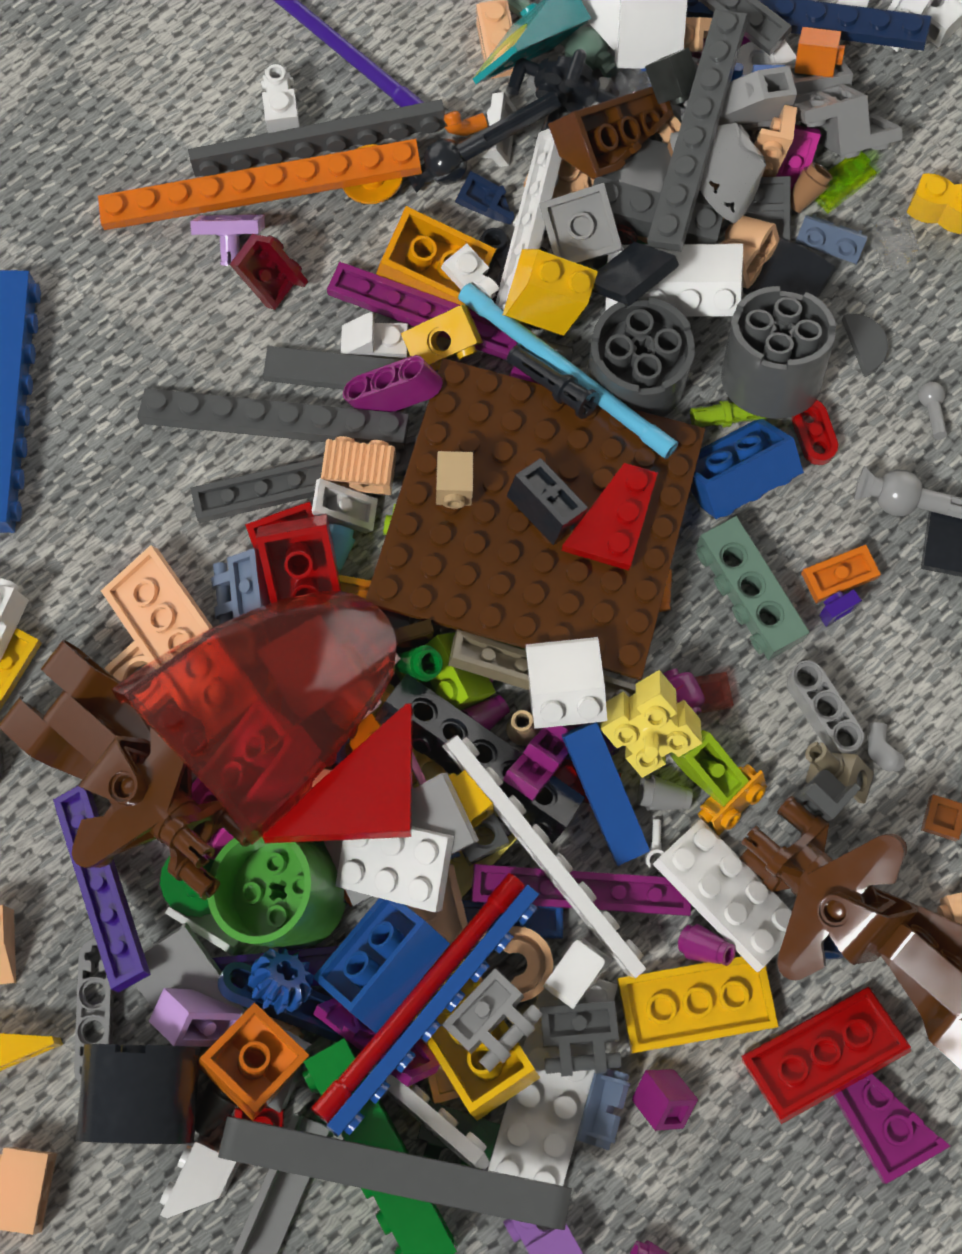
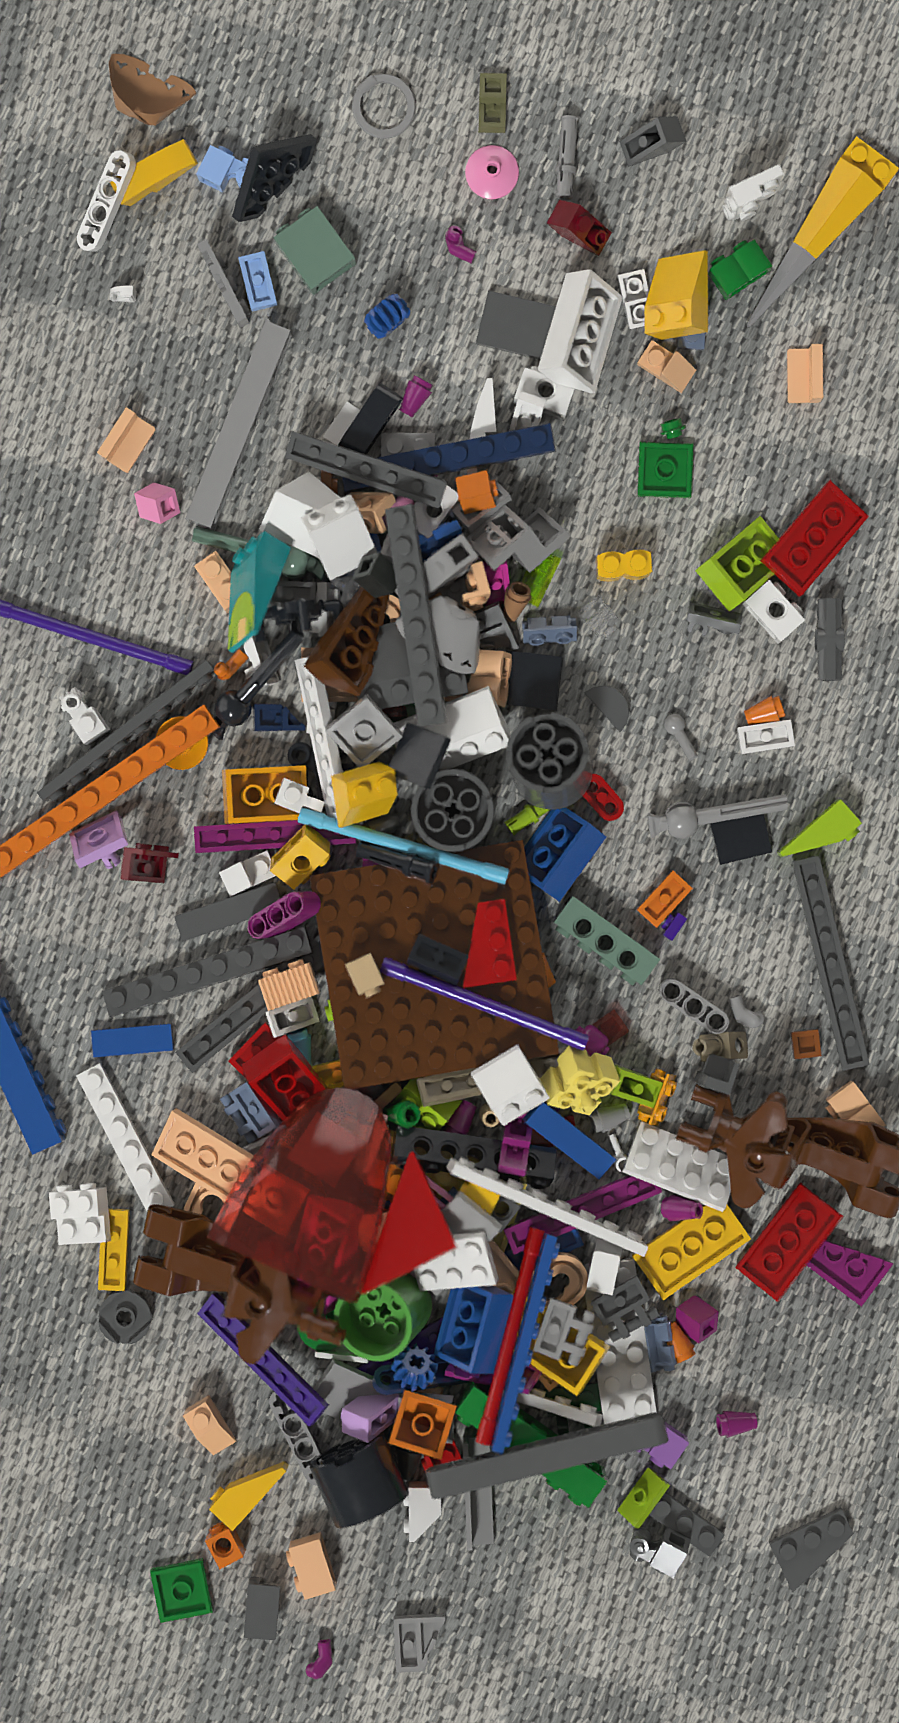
camera: 20 degrees left, 15 degrees up
(81, 557) = (124, 1137): none -> white plate
(149, 457) = (132, 1040): none -> blue tile
(631, 1123) = (682, 1345): none -> orange cone
(659, 654) = (563, 1034): none -> dark purple piece

